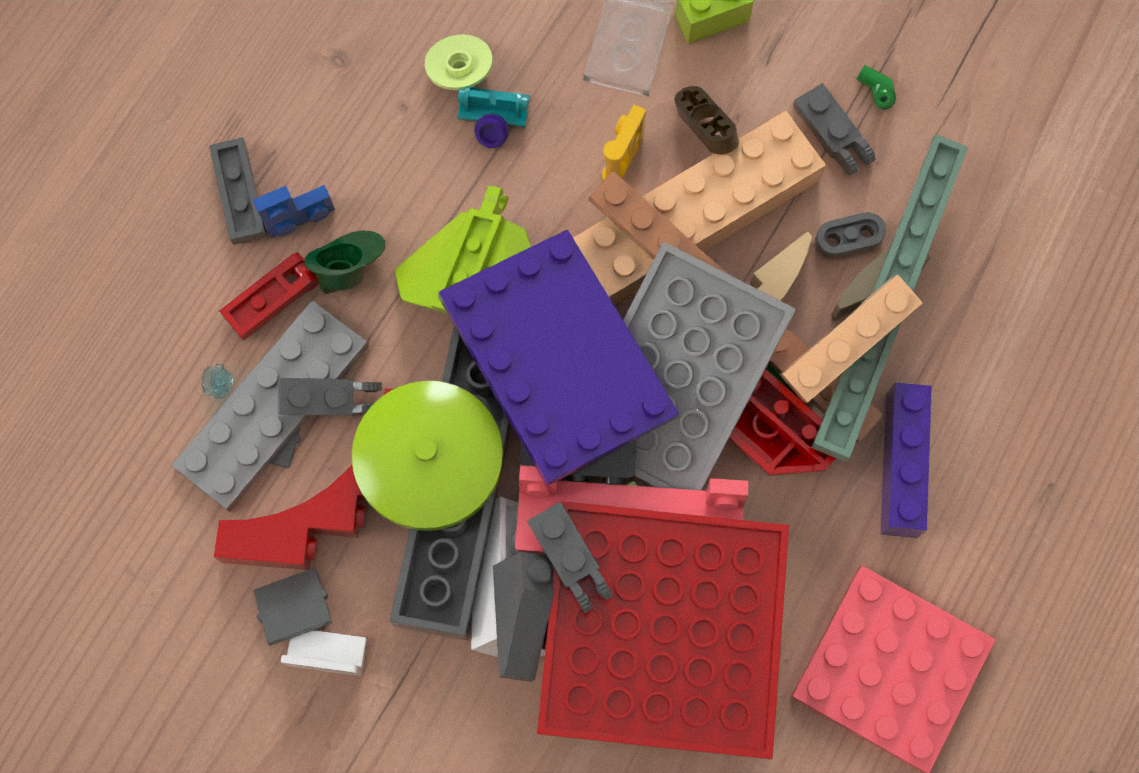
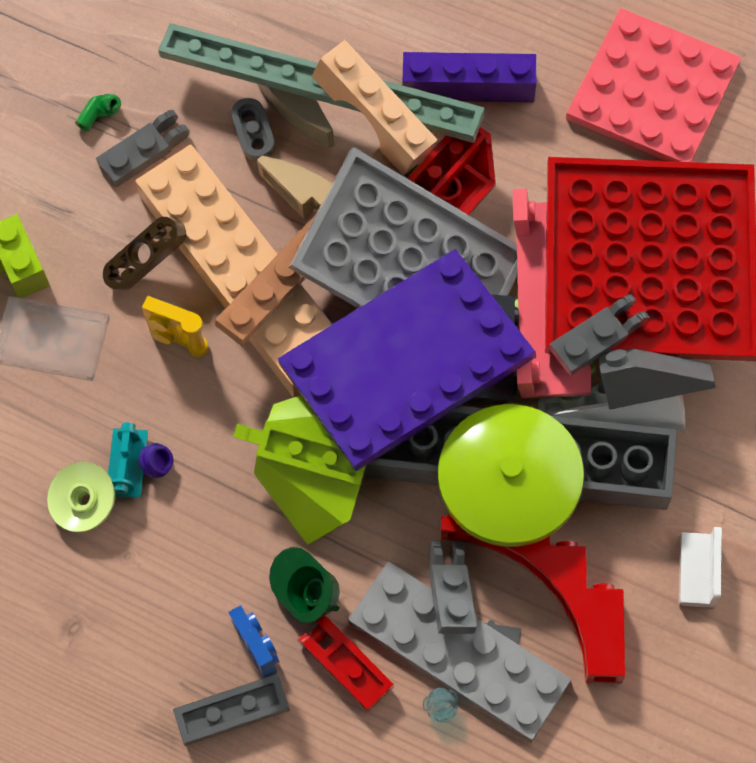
camera: 90 degrees left, 5 degrees down
(292, 606) = (660, 604): dark grey piece -> none

